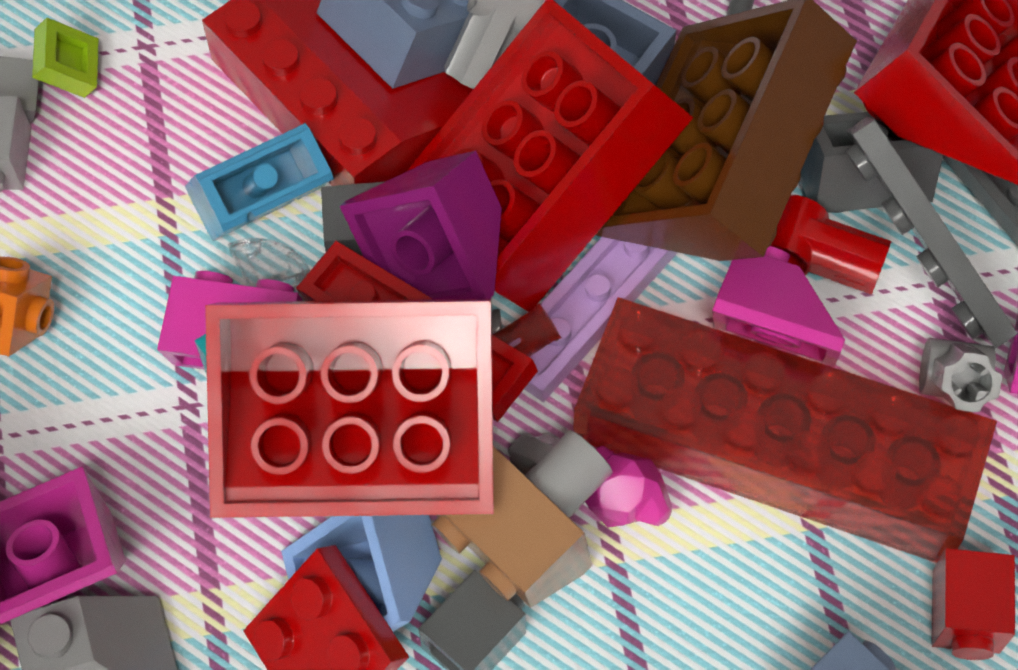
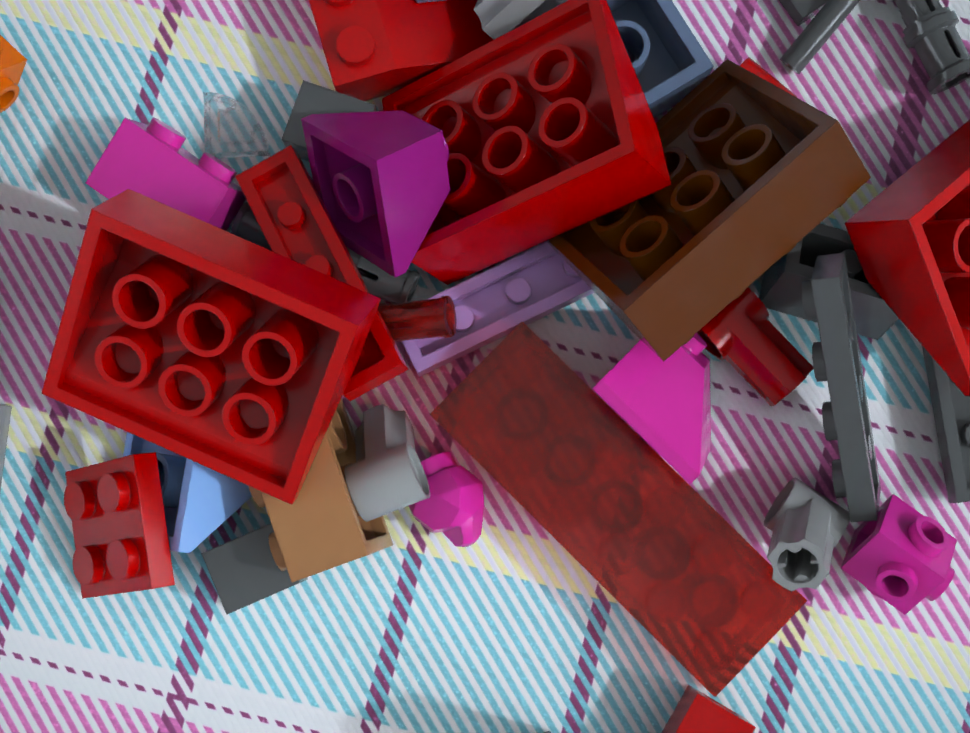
camera: 25 degrees right, 20 degrees up
(258, 181) = (250, 47): dark azure brick -> none

